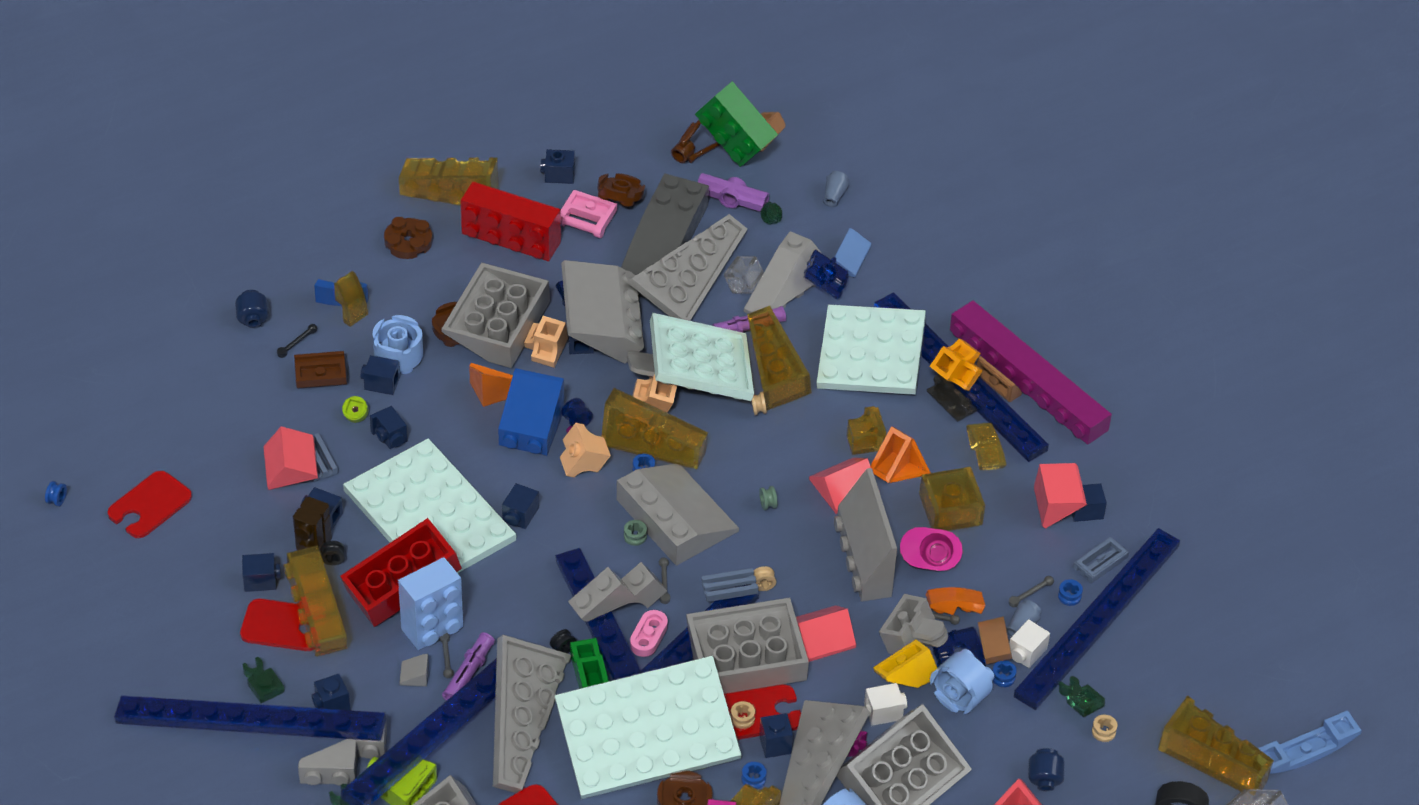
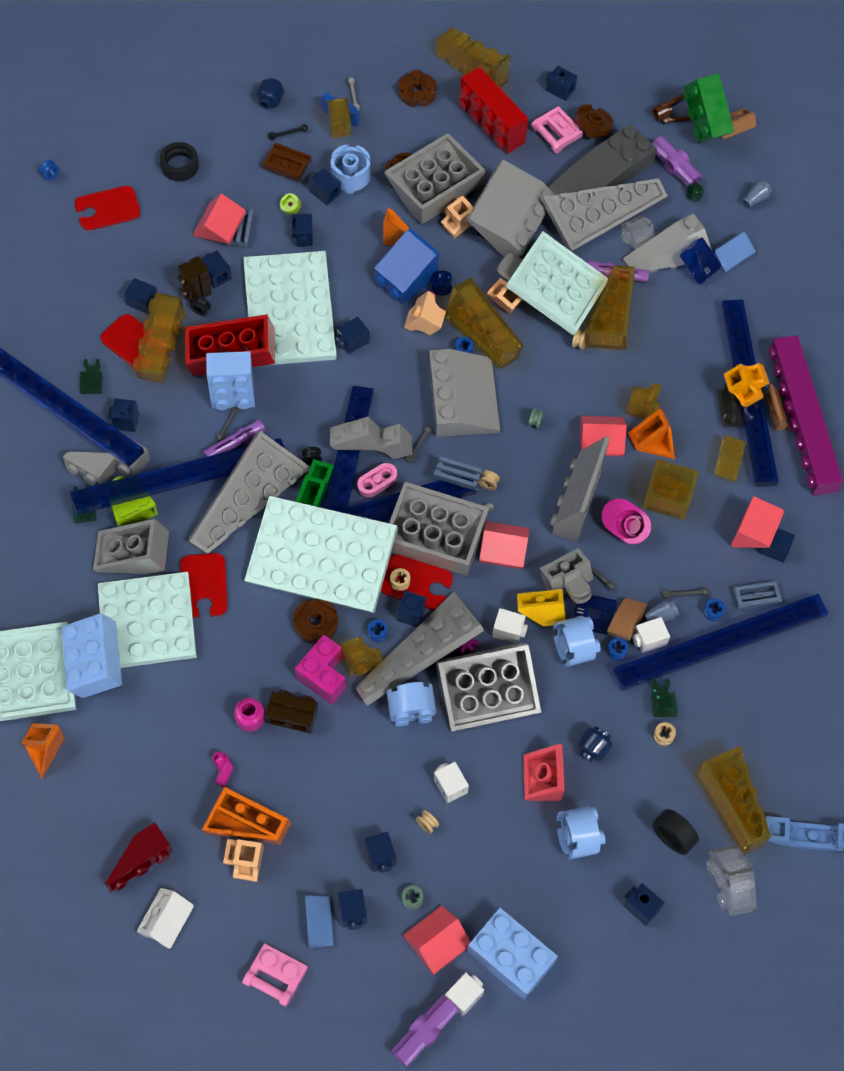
camera: 30 degrees right, 15 degrees up
(197, 406) = (179, 149): none -> black tyre
(330, 261) = (351, 81): none -> light grey hinge
(415, 671) = (197, 424): light grey slope -> none
(635, 525) = (422, 390): sand green bush -> none
(871, 349) = (694, 337): light aqua plate -> none
(949, 598) = (615, 567): orange slope -> none

